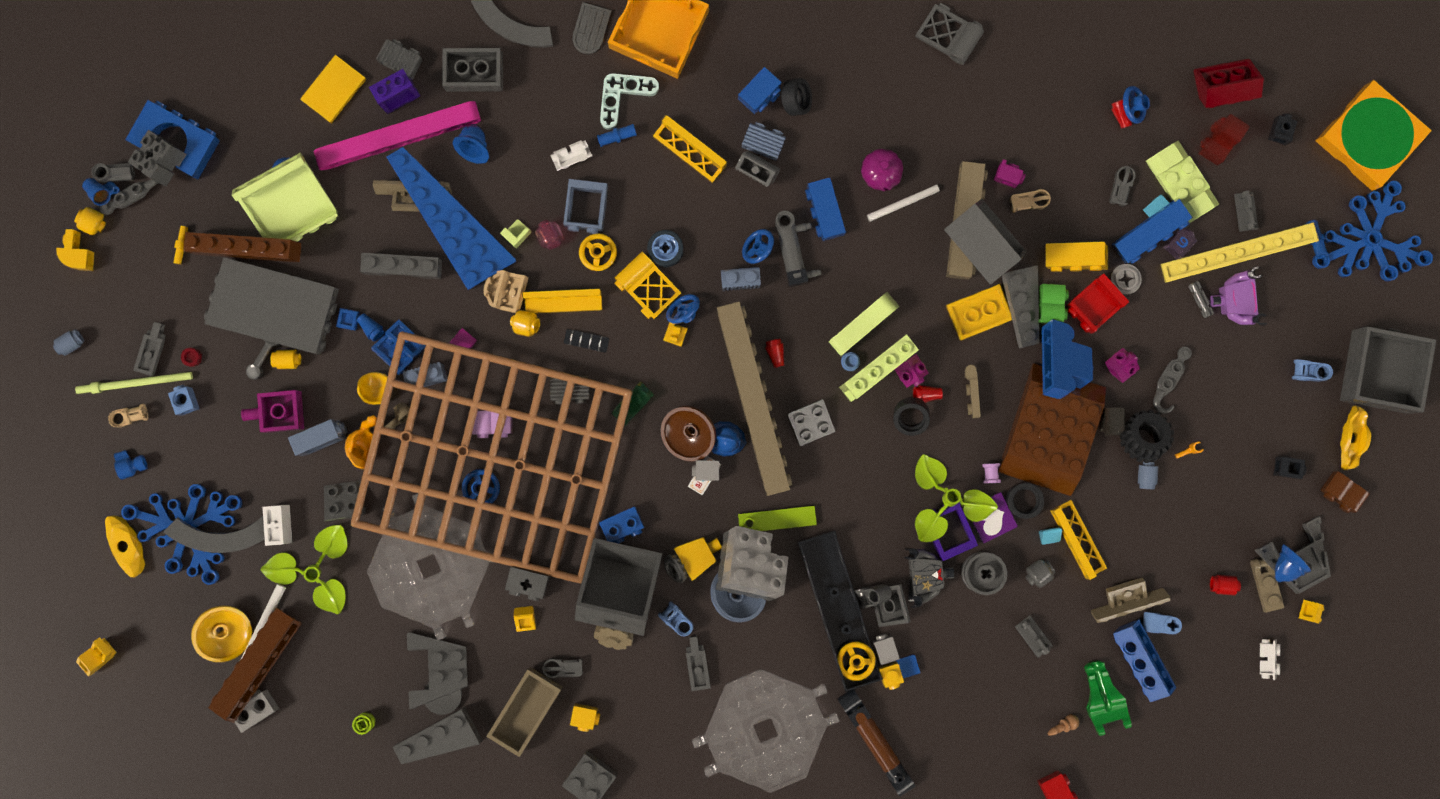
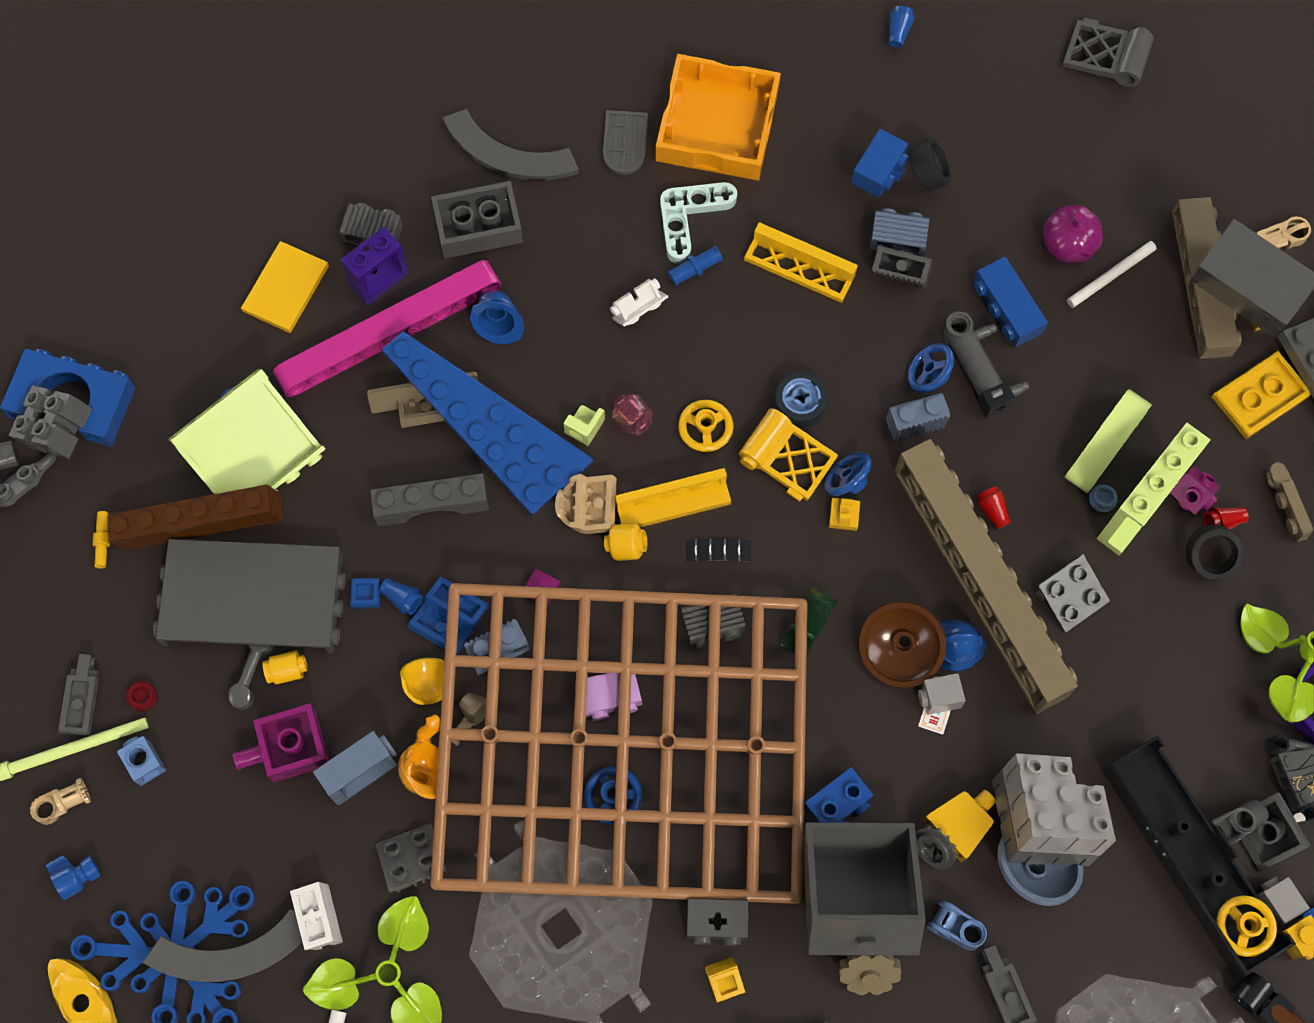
camera: 10 degrees left, 15 degrees down
(586, 186) = (671, 340): sand blue window -> none
(778, 519) = (1072, 740): lime piece -> none
(1009, 174) = (1244, 207): magenta brick -> none

